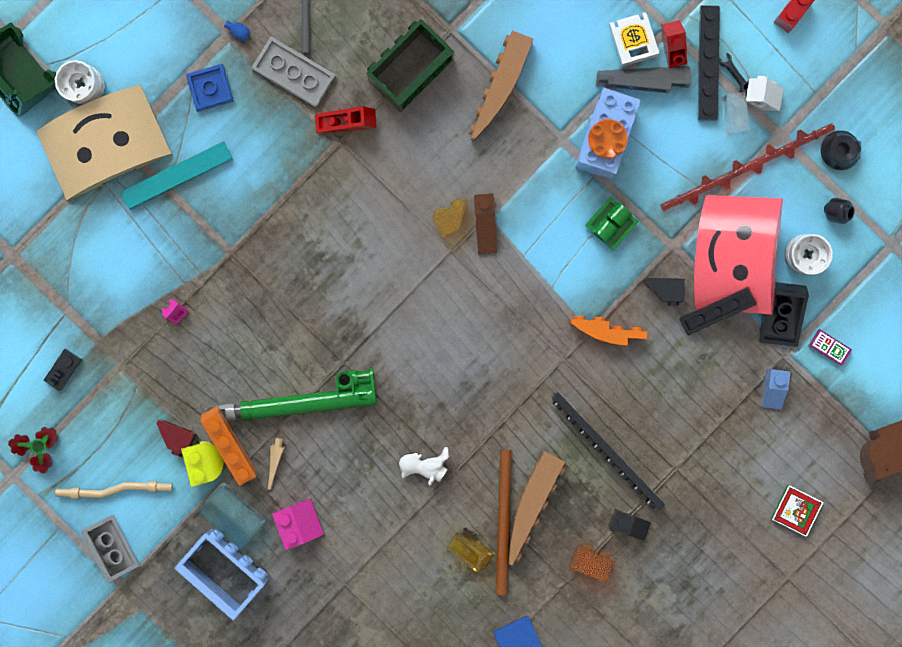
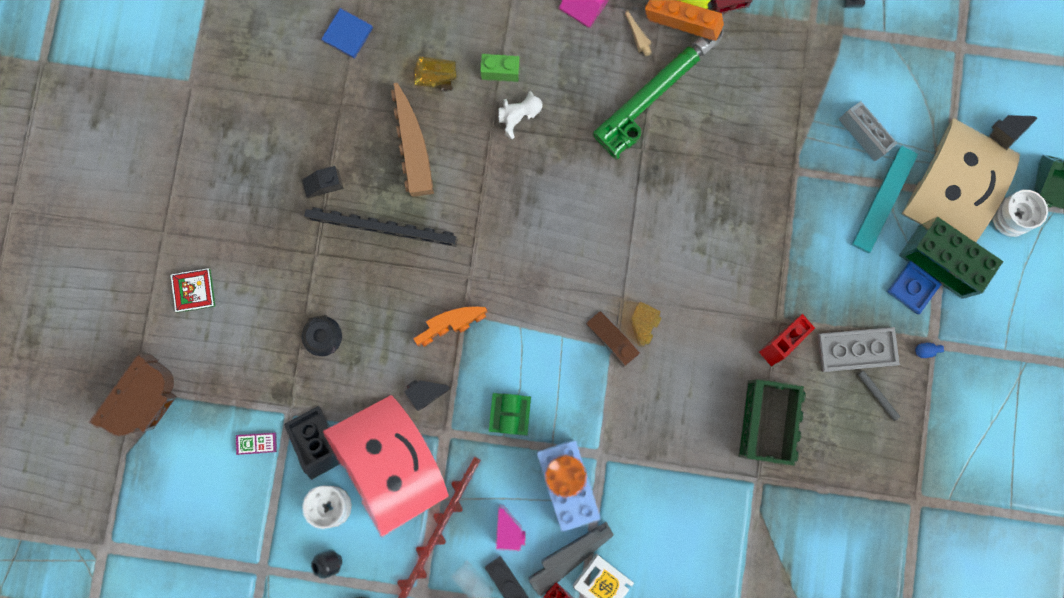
camera: 145 degrees right, 5 degrees down
(29, 155) = (1011, 129): none -> black slope
(145, 240) = (867, 131): none -> light grey slope
(166, 87) = (951, 258): none -> dark green hose
(174, 312) = (803, 91): dark pink tile -> none
(412, 516) = (500, 67): none -> bright green brick
(503, 80) = (685, 467): medium nougat slope -> none
(503, 522) = (425, 115): dark orange piece -> none
(592, 563) = (331, 131): clear orange brick -> none
(679, 130) = (509, 531): none -> dark pink slope
(718, 310) = (370, 404): black tile -> none
(718, 396) = (321, 336): none -> black piece
(775, 388) = (278, 376): medium blue slope -> none

